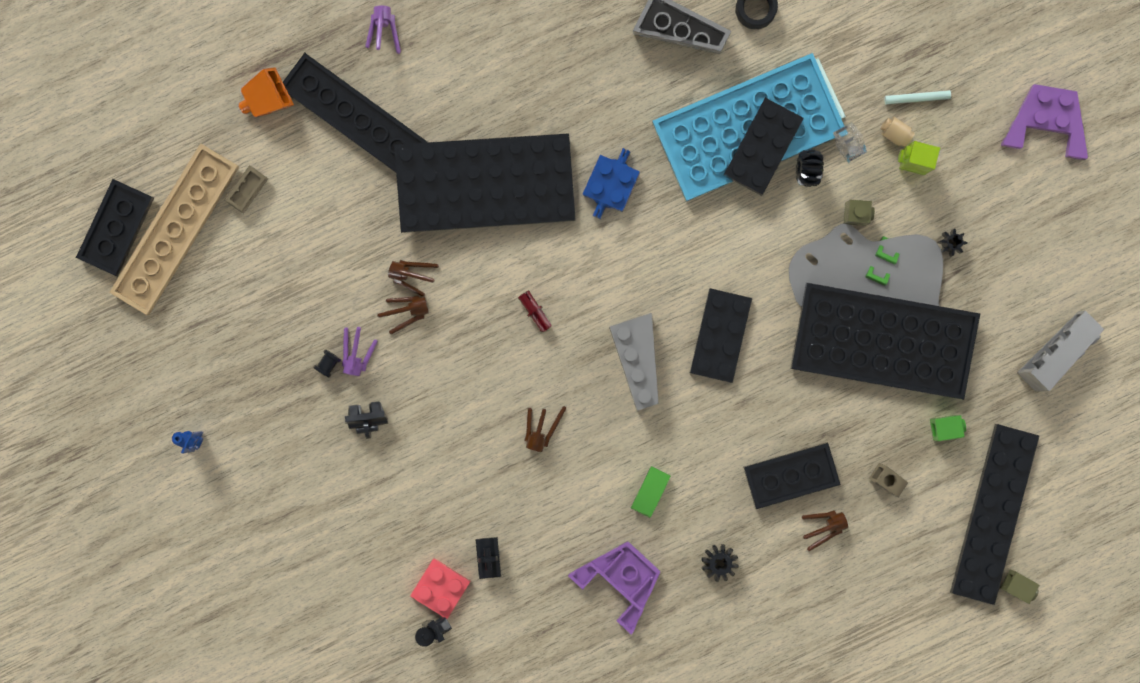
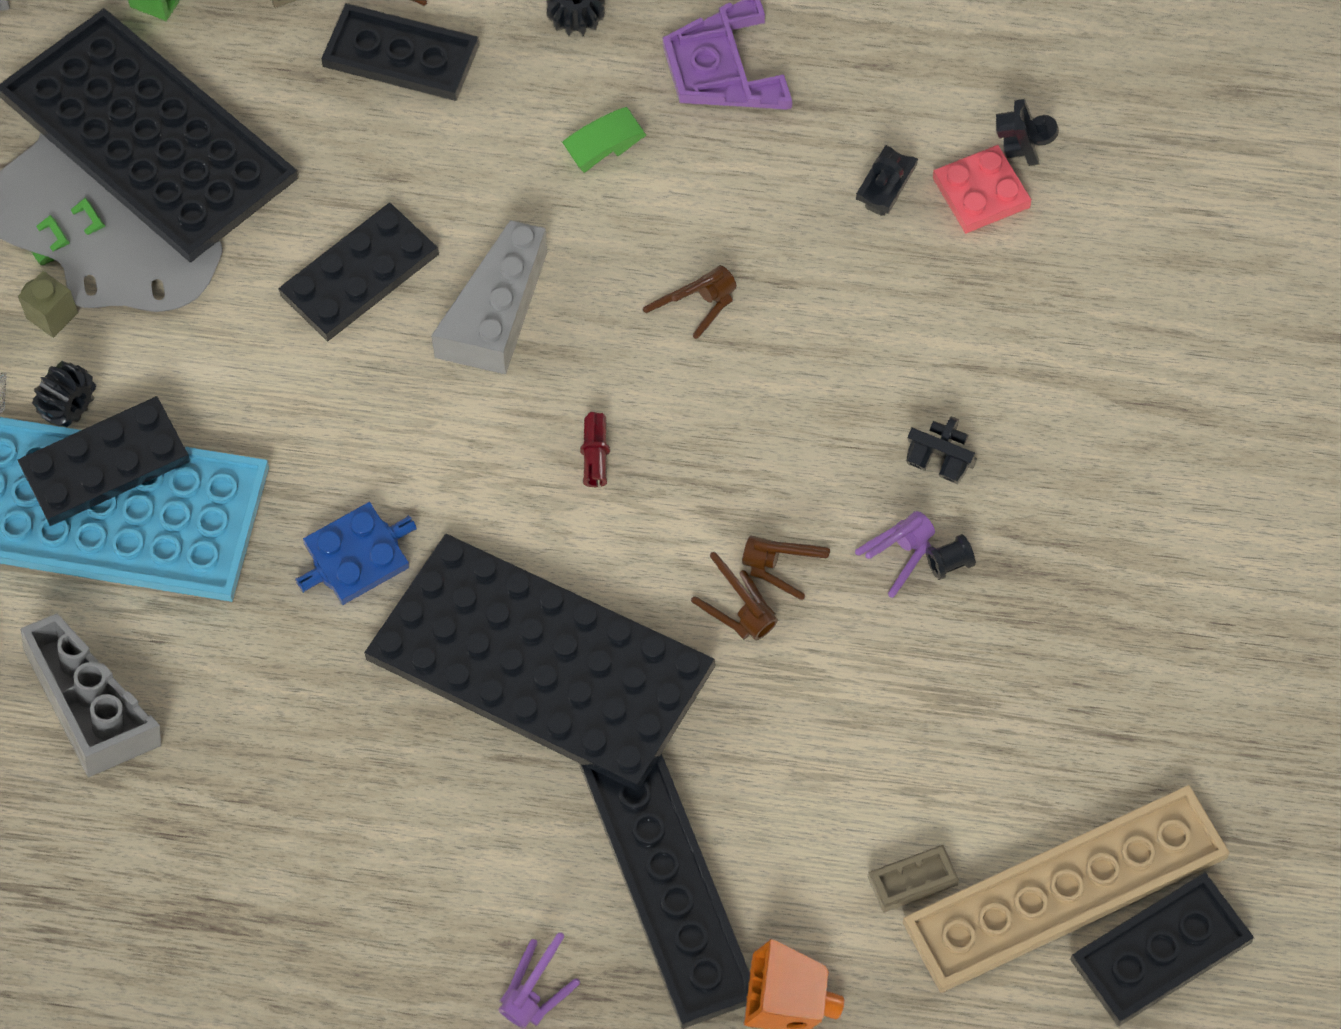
camera: 145 degrees left, 25 degrees down
(188, 440) = (1229, 564): blue hinge -> none

